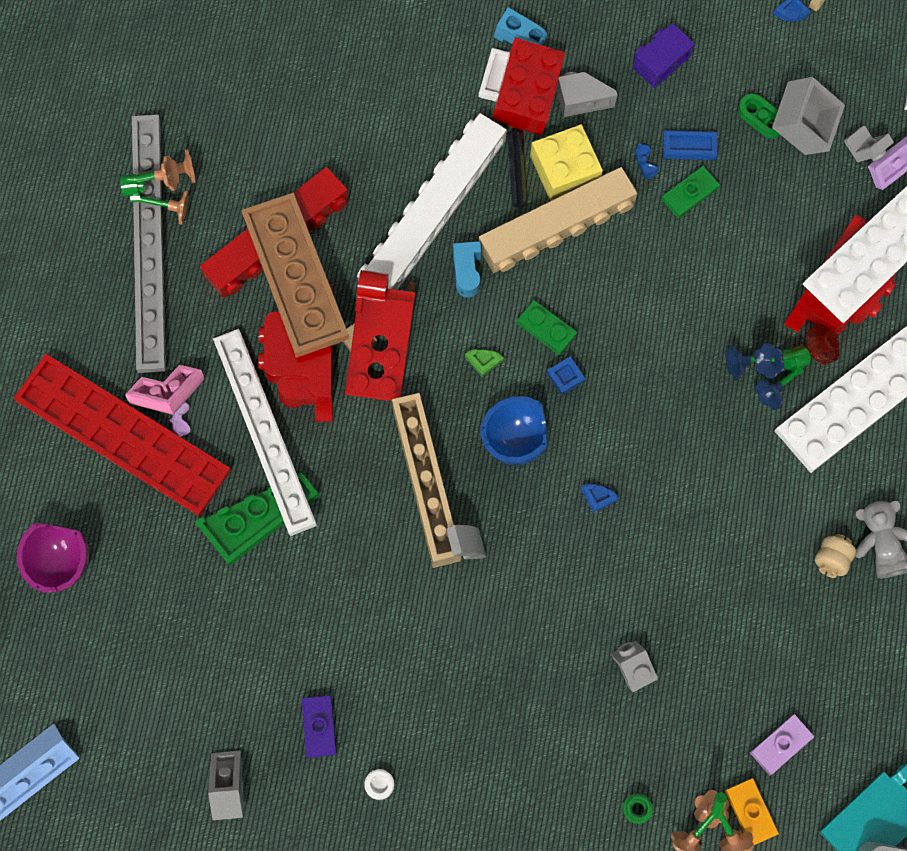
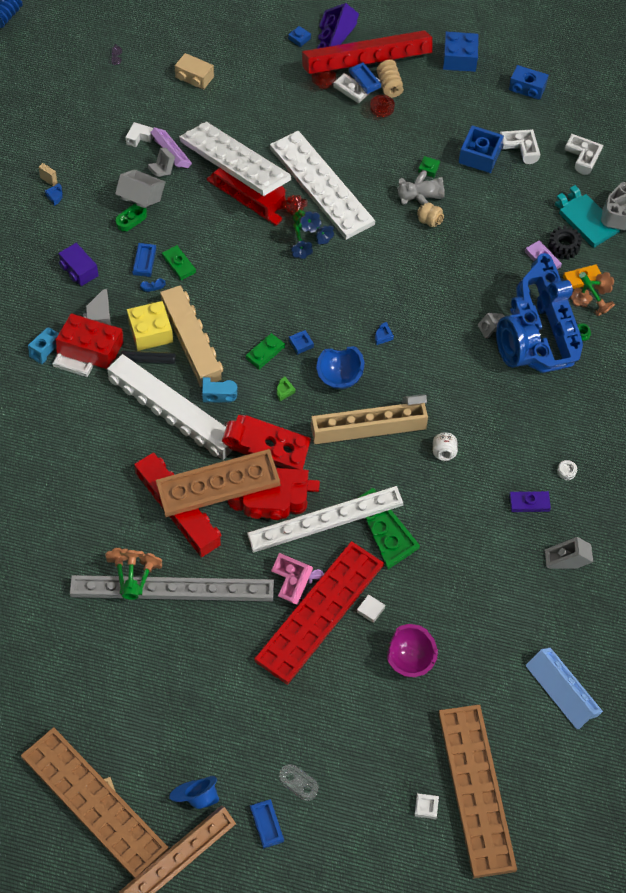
camera: 85 degrees left, 15 degrees down
(131, 503) = (371, 608): none -> white tile
(399, 595) = (445, 446): none -> white head
(597, 710) = (521, 340): none -> blue piece
(833, 777) = (564, 250): none -> black tyre

